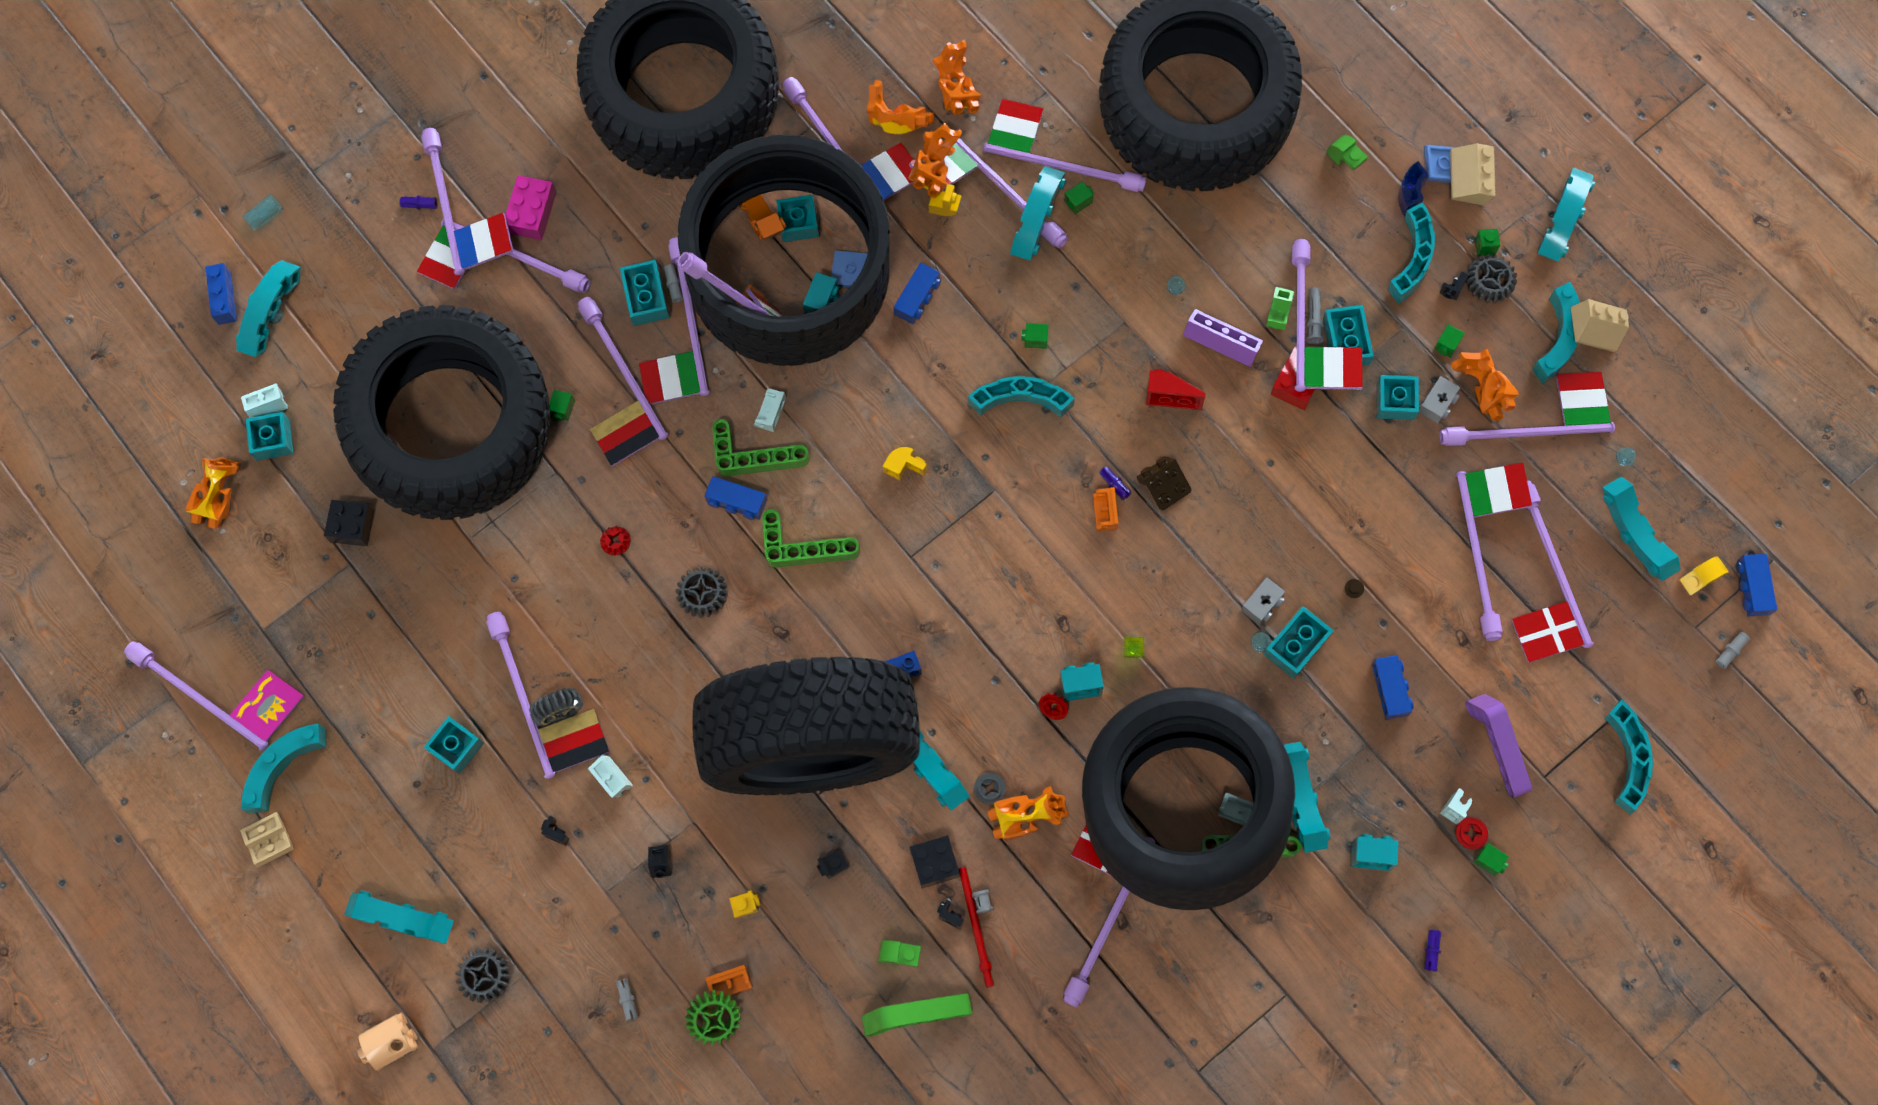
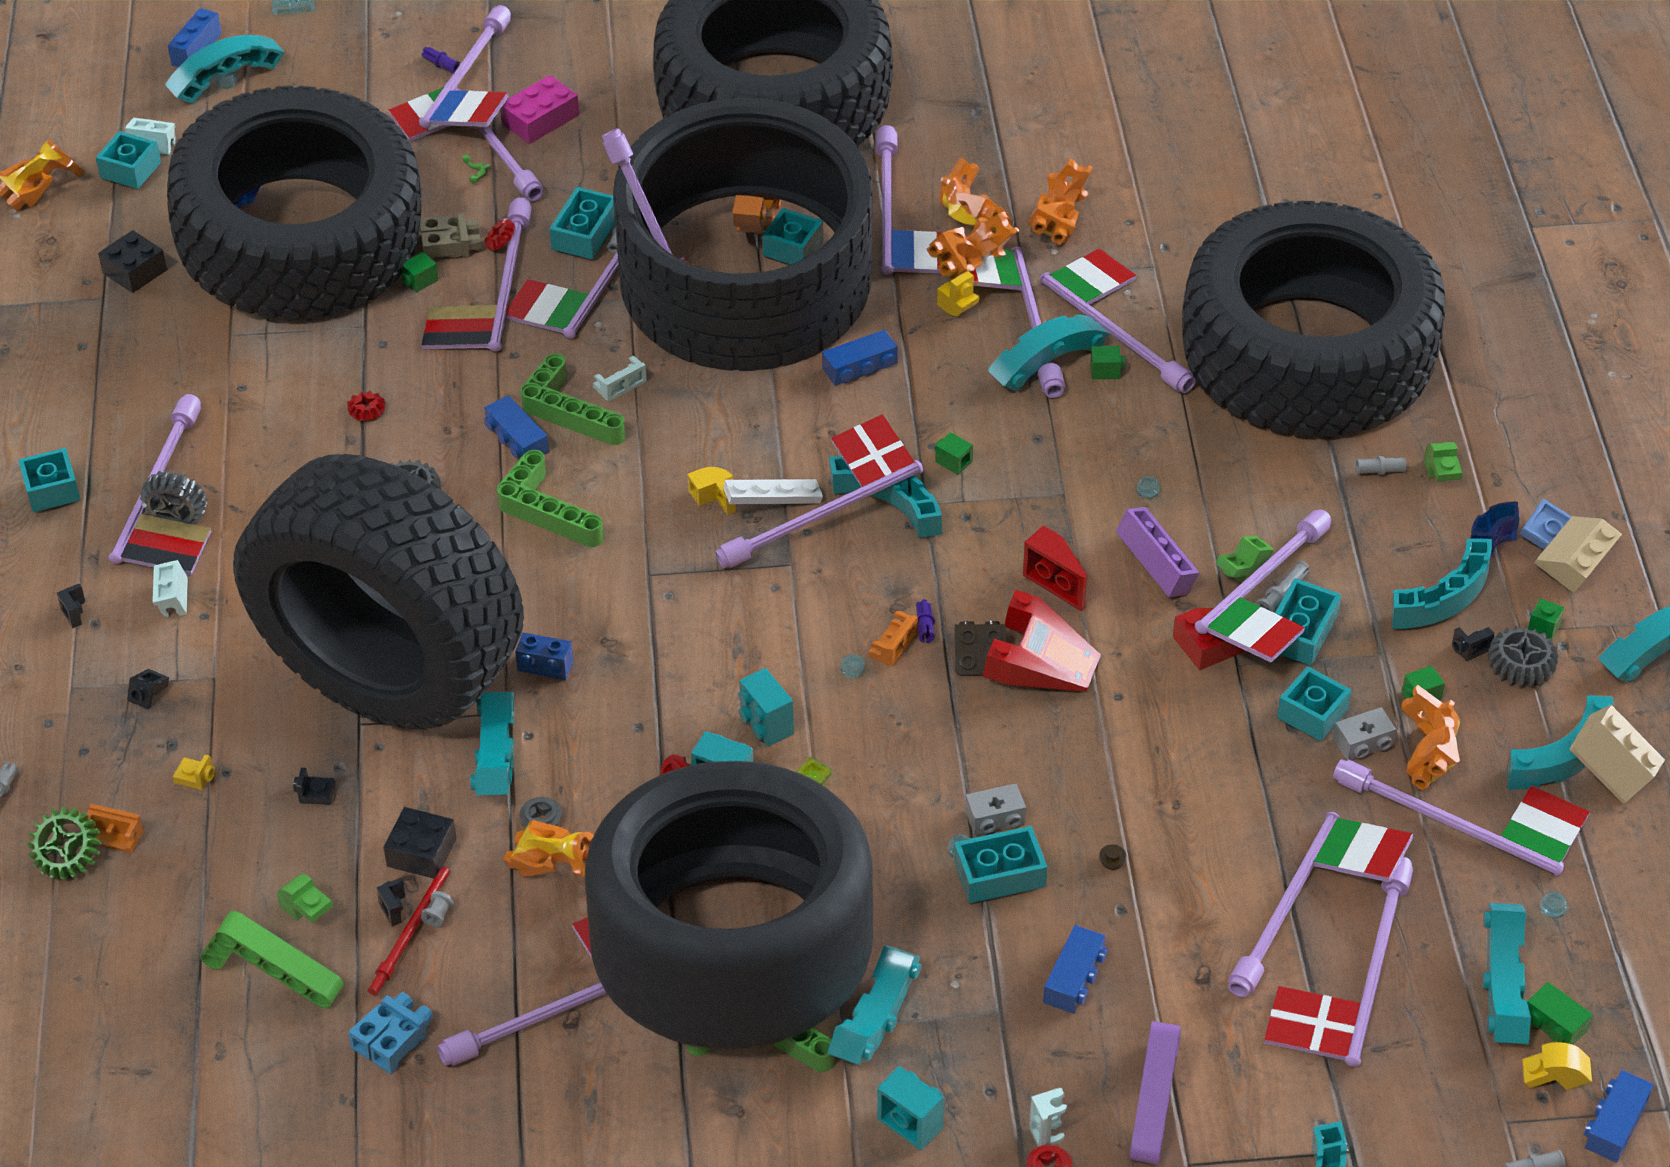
camera: 30 degrees right, 25 degrees down
(530, 297) = (480, 166): none -> bright green piece
(557, 361) = (449, 236): none -> dark tan hips
(596, 334) = (499, 234): none -> red gear
(946, 443) = (773, 491): none -> white plate
(1004, 383) = (876, 462): none -> flag
(1027, 1001) = (390, 1031): none -> dark azure hips
(1073, 619) = (766, 707): none -> teal brick
(1095, 546) = (852, 665): none -> clear light blue plate
(1214, 457) = (1048, 654): none -> red wedge
(1306, 176) = (1380, 465): none -> light grey pin
(1681, 536) = (1558, 1015): none -> green brick

